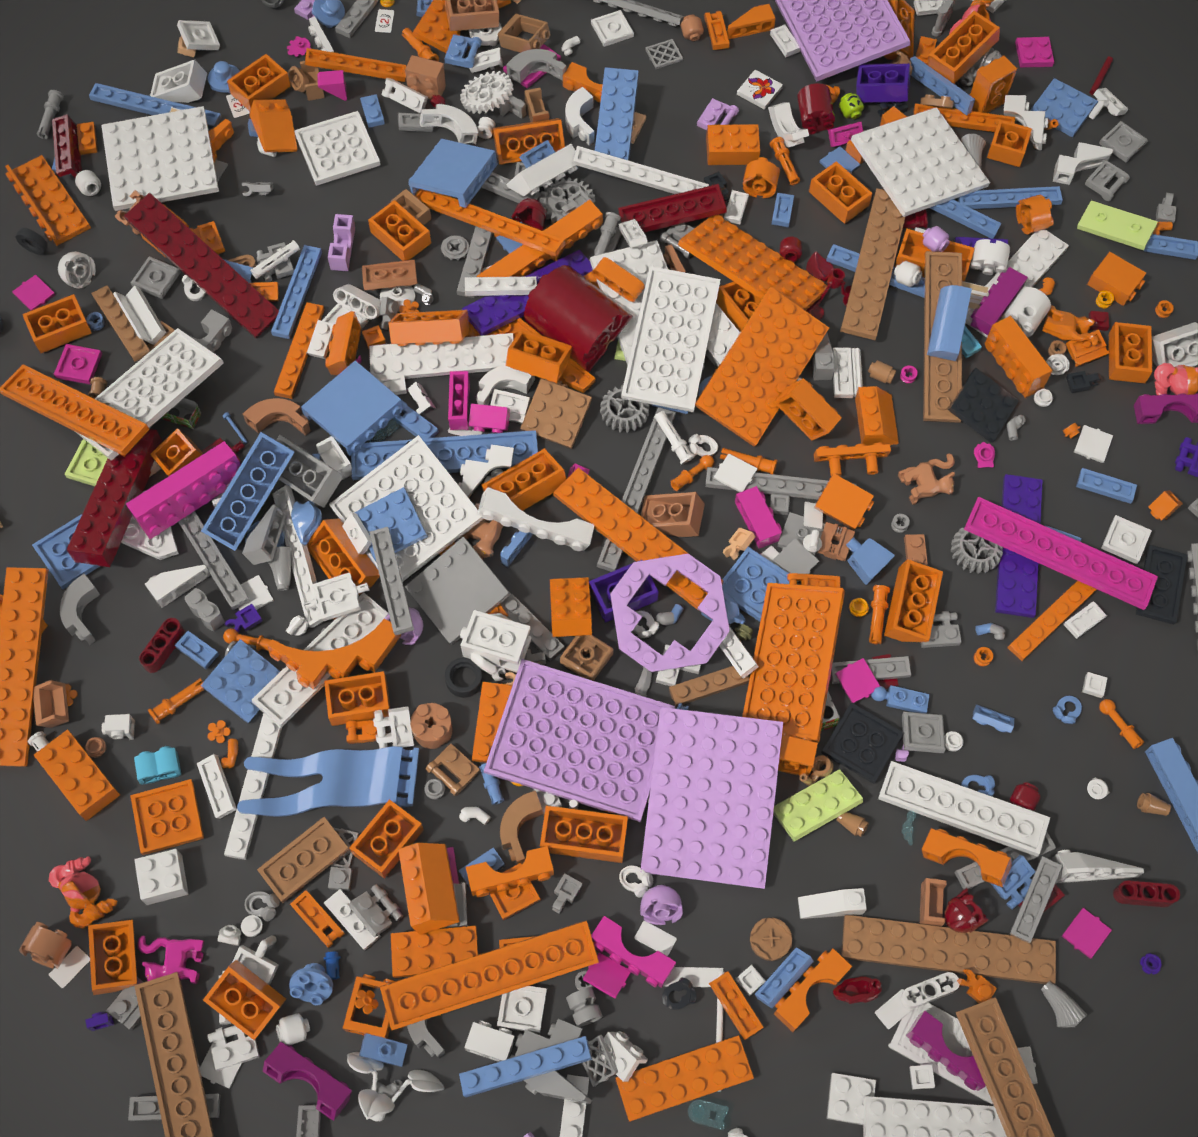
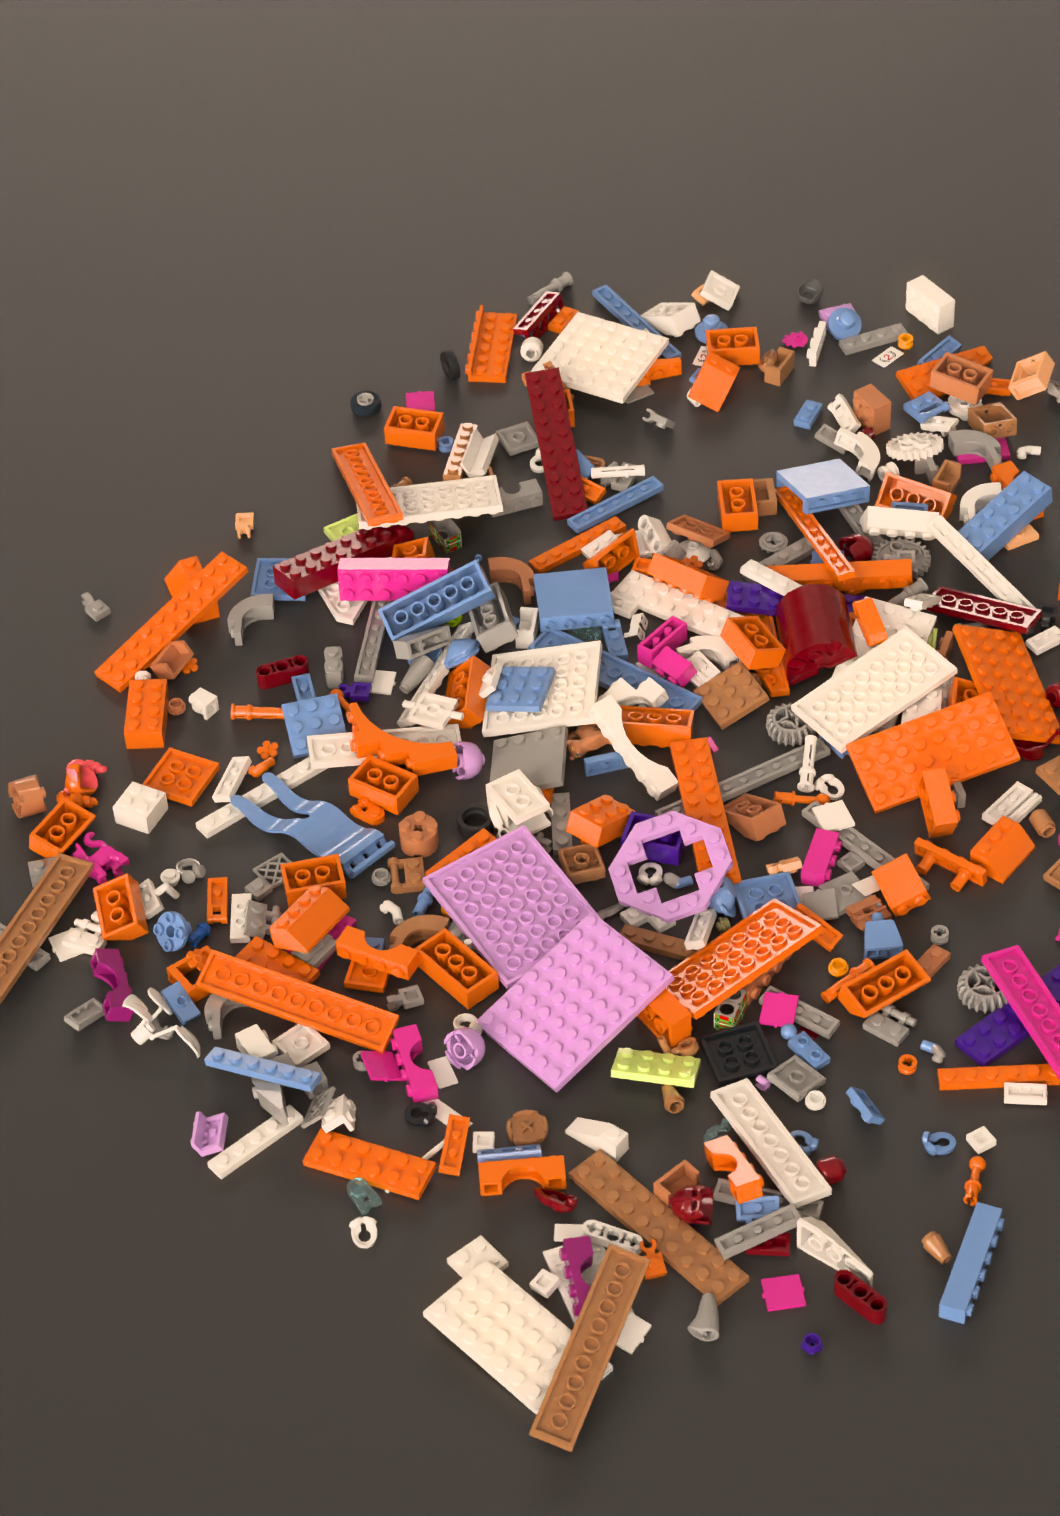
camera: 45 degrees right, 20 degrees down
(70, 967) = (26, 825): white sticker -> none
(76, 269) = (464, 400): white cylinder -> none
(78, 364) = (404, 463): dark pink plate -> none
(99, 1021) = (17, 864): dark purple plate -> none
(157, 765) = (205, 742): medium azure brick -> none
(172, 584) = (323, 635): white slope -> none
(209, 234) = (585, 433): orange plate -> none
(230, 934) = (150, 871): white plate -> none
(292, 1029) = (134, 951): white head -> none
(297, 626) = (389, 717): white plate -> none
(303, 859) = (244, 859): medium nougat plate -> none
(333, 83) = (792, 376): dark pink slope -> none
(337, 148) = (750, 424): white plate -> none
(341, 249) = (674, 496): lavender arch -> none
(355, 64) = (818, 368): orange plate -> none
(391, 581) = (479, 717): light grey plate -> none
(400, 728) = (395, 813): white plate -> none
(424, 51) = (895, 392): orange pin -> none
(584, 1008) = (343, 1071): light grey wheel -> none
(759, 462) = (862, 823): orange pin -> none
(812, 541) = (845, 898): white plate -> none
(823, 360) = (1000, 781): light grey slope -> none
(926, 480) = (994, 918): nougat animal -> none
(1097, 788) = (902, 1208): white plate -> none

